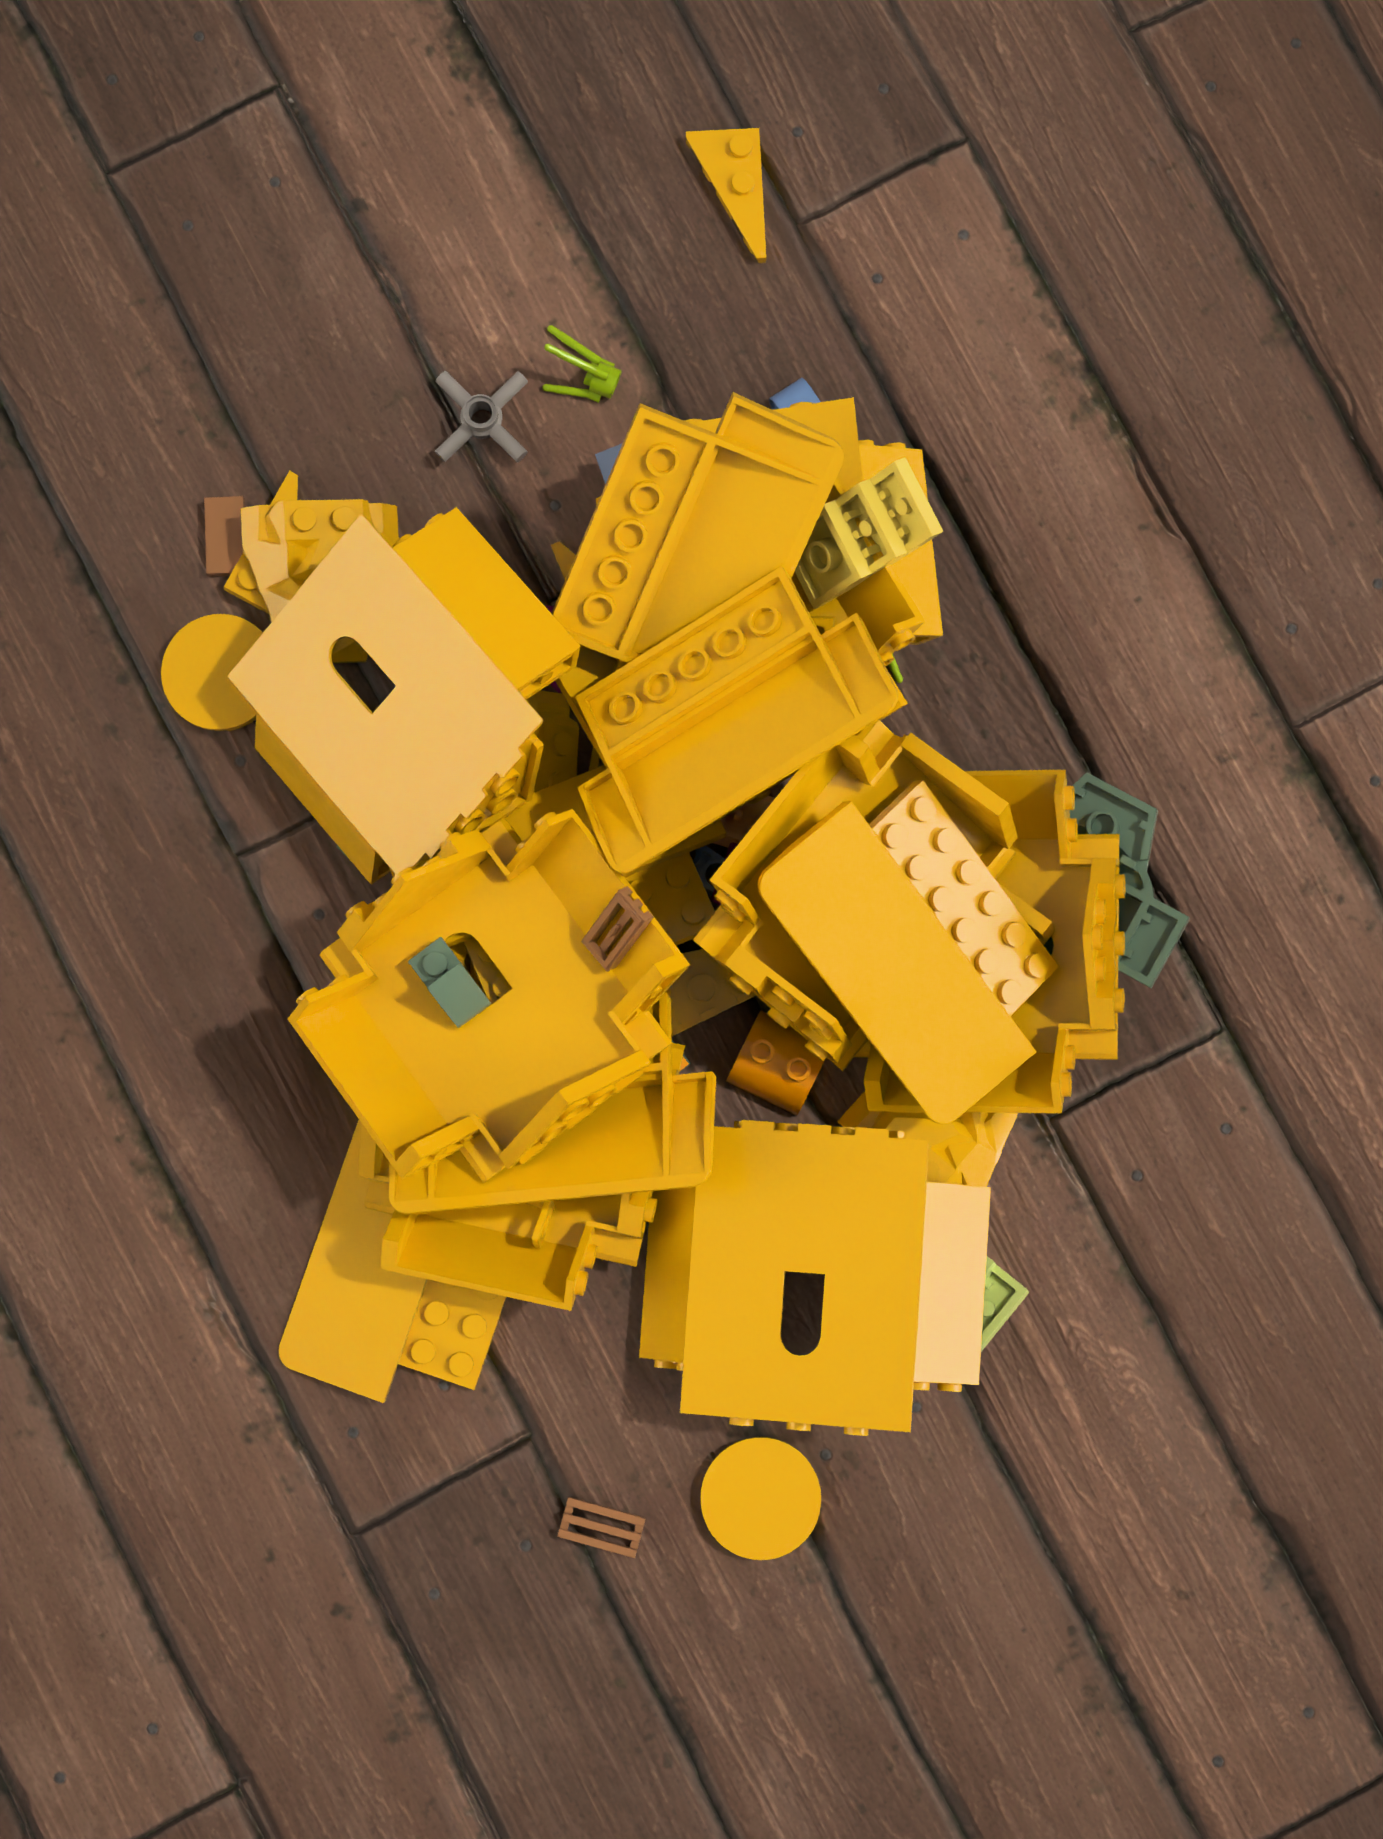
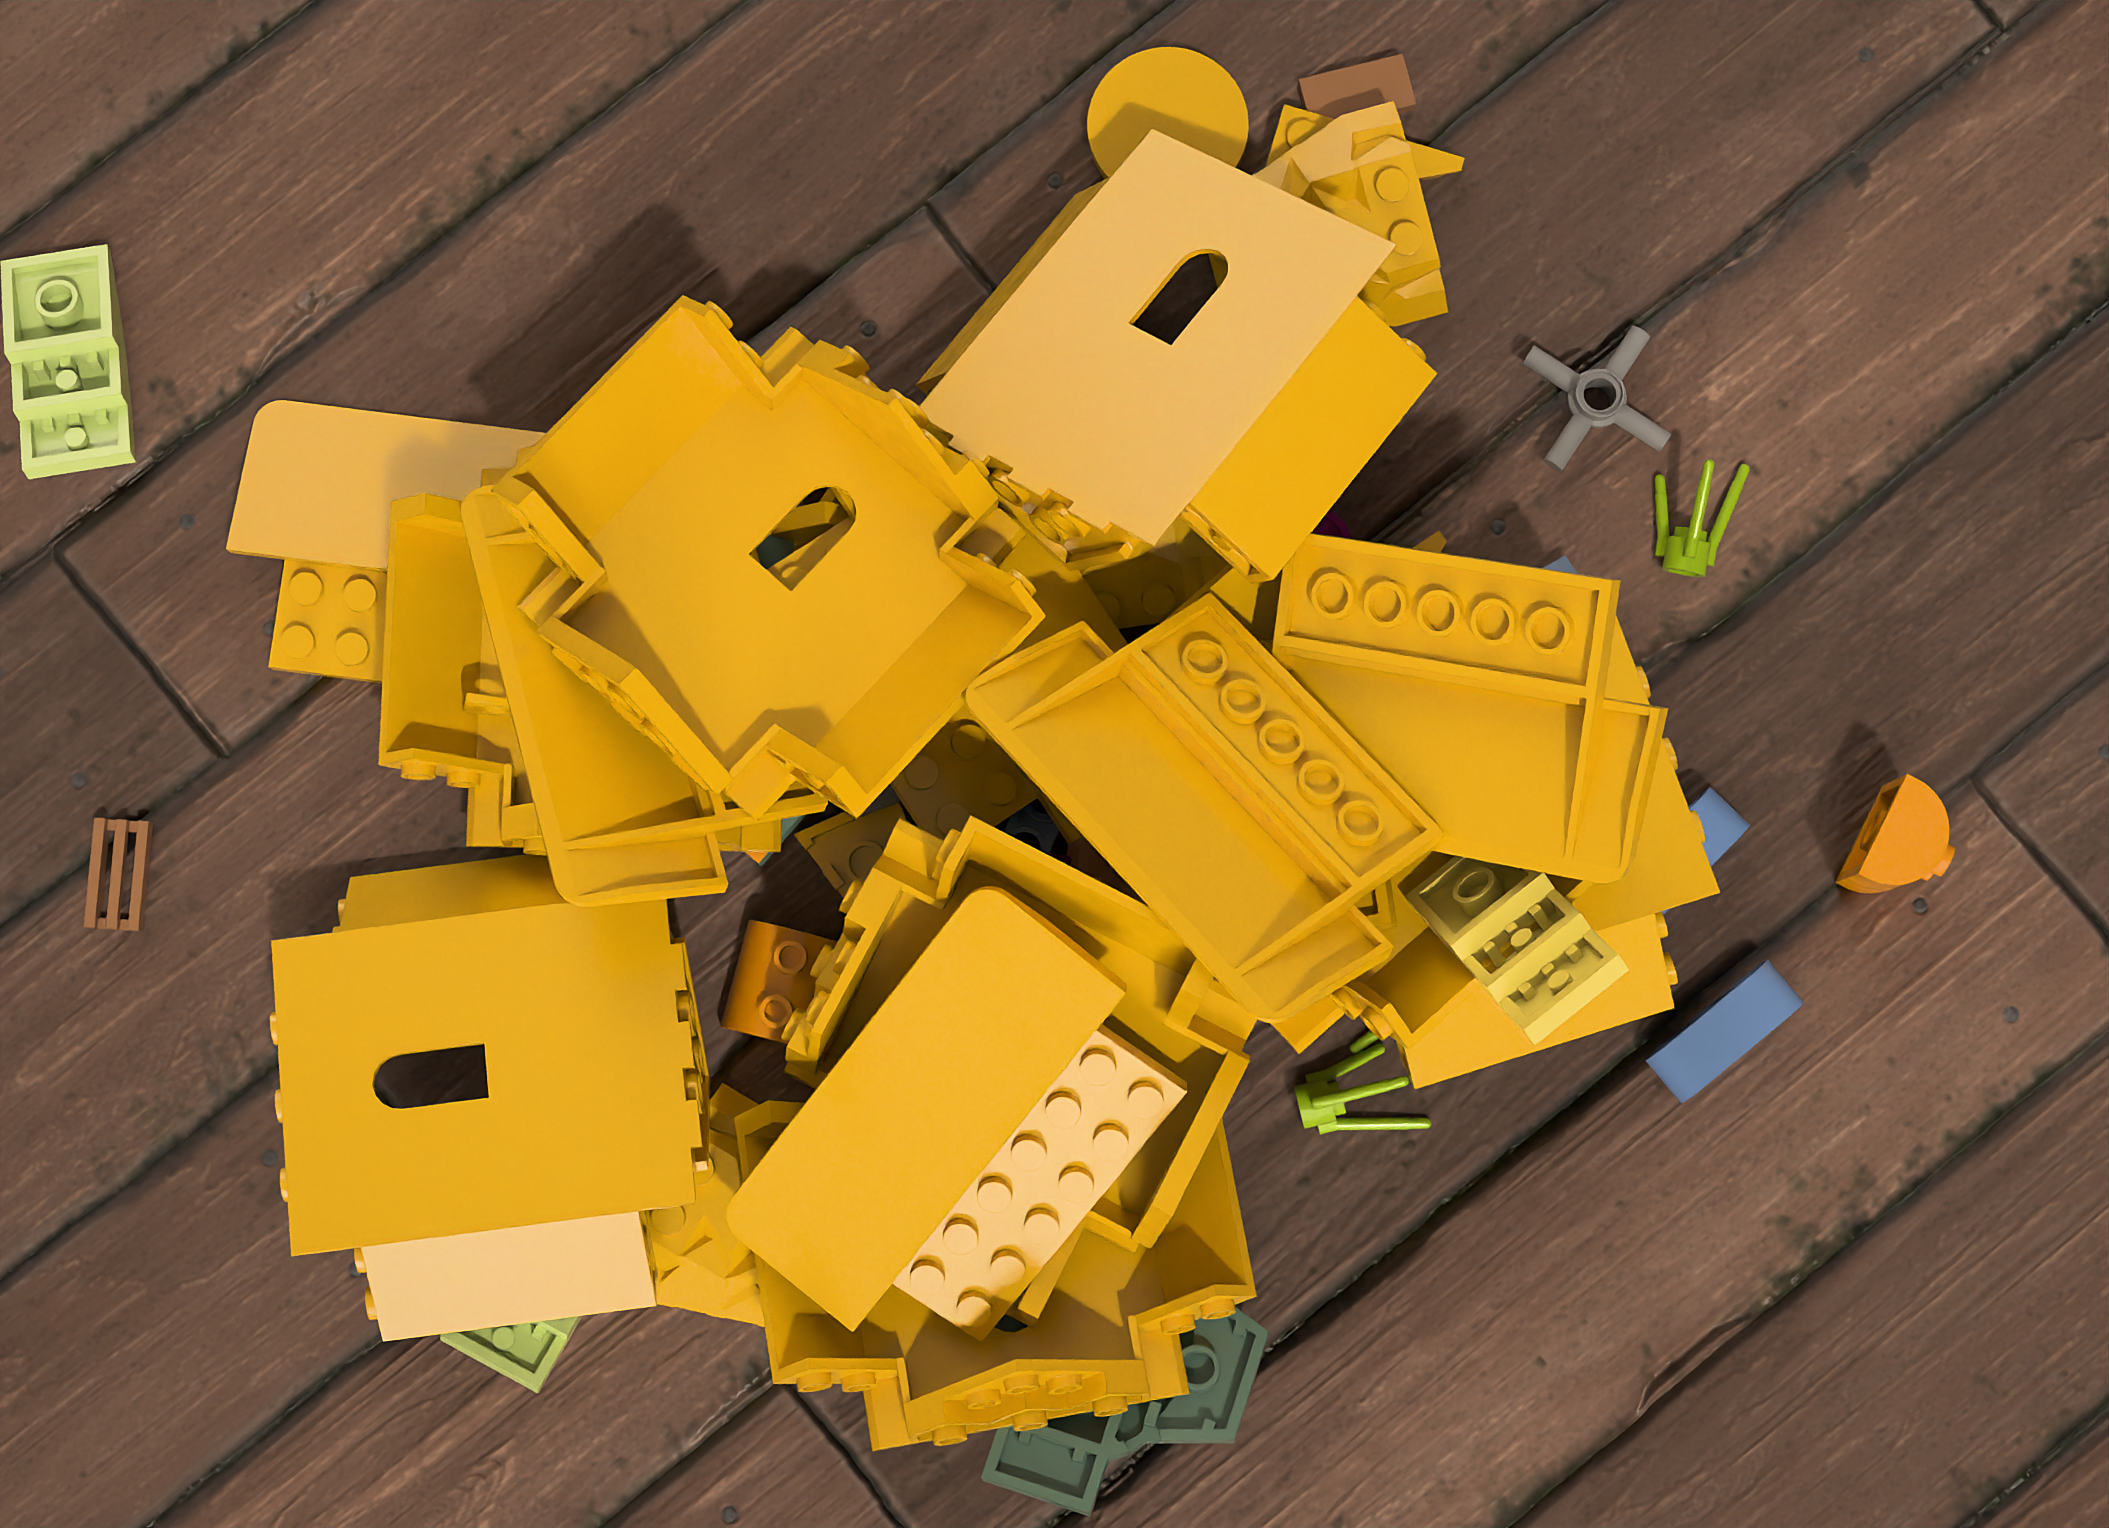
camera: 80 degrees right, 0 degrees up
(217, 1497) = (67, 361): none -> yellowish green slope
(449, 982) = (779, 503): sand green slope -> none
(632, 911) = (912, 724): medium nougat tile -> none
(734, 168) = (2029, 674): yellow wing -> none
(760, 1498) = (194, 1080): yellow tile -> none
(832, 279) = (1899, 840): none -> light orange brick
(933, 708) = (1323, 1101): none -> lime plant
(938, 426) = (1724, 1031): none -> medium blue beam

